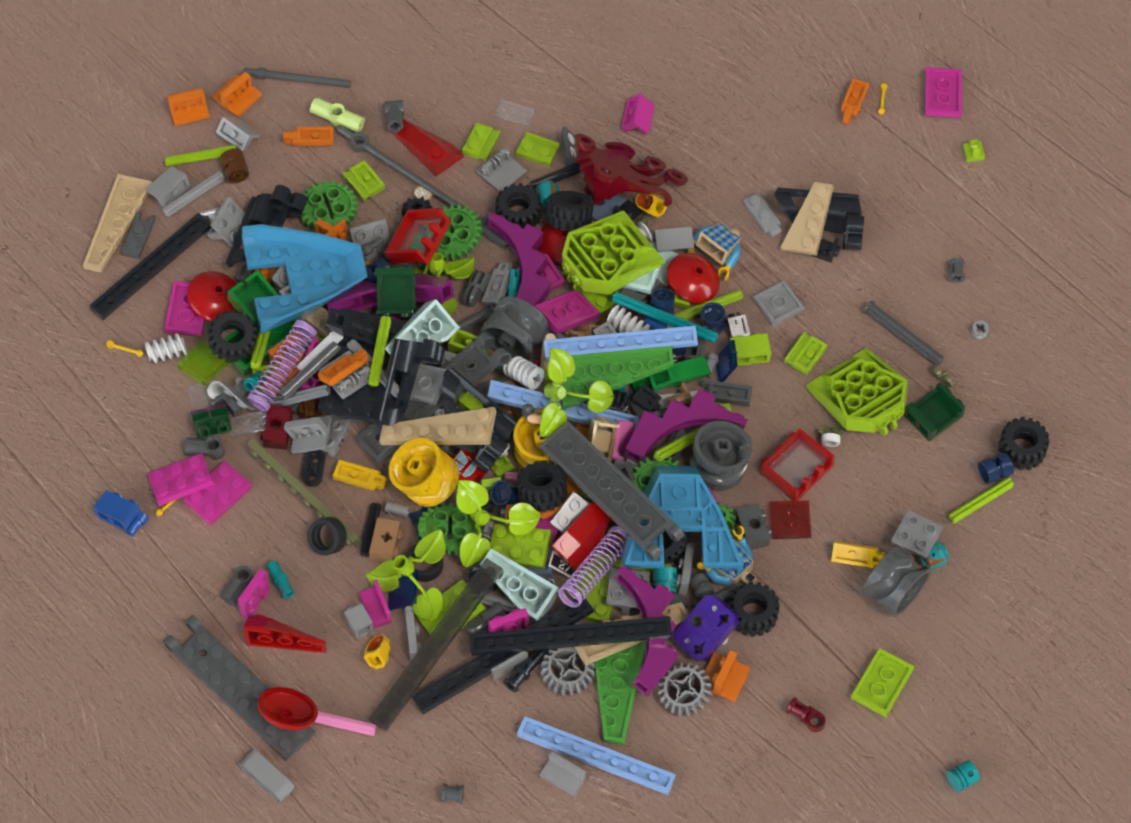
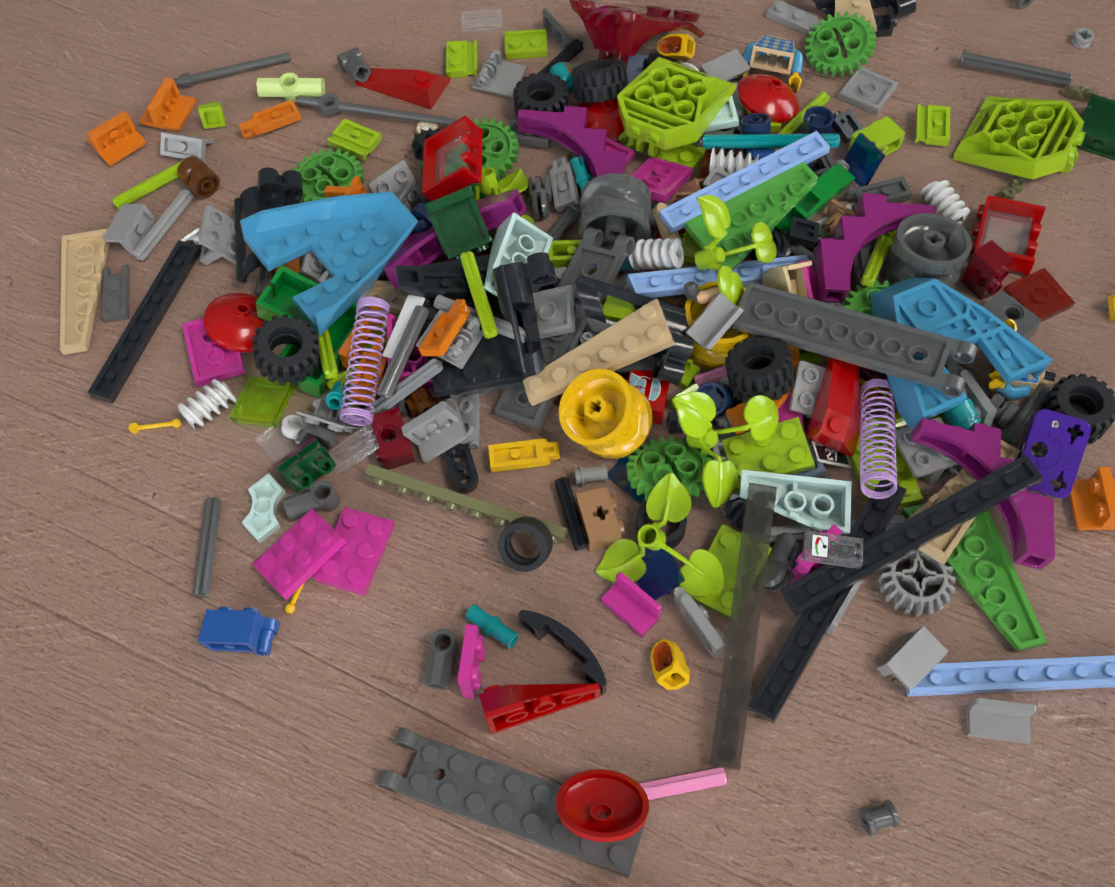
camera: 20 degrees left, 0 degrees up
(124, 449) = (207, 548): none -> dark grey axle
(167, 445) = (262, 519): none -> light aqua tile
(267, 114) = (212, 115): none -> lime tile
(312, 593) = (540, 625): none -> black slope
(358, 620) = (621, 635): light grey brick -> none
(513, 622) = (833, 549): none -> clear tile
(522, 672) = (864, 609): black pin -> none
(526, 438) = (713, 321): none -> light grey panel
(532, 714) = (913, 658): none -> light grey panel
(681, 696) = (1095, 538): light grey gear -> none
(757, 484) = (987, 270): none -> dark red brick
(767, 422) = (945, 201): none -> white piece
(792, 256) = (821, 52): none -> bright green gear
(830, 440) = (1023, 194): white tile -> none

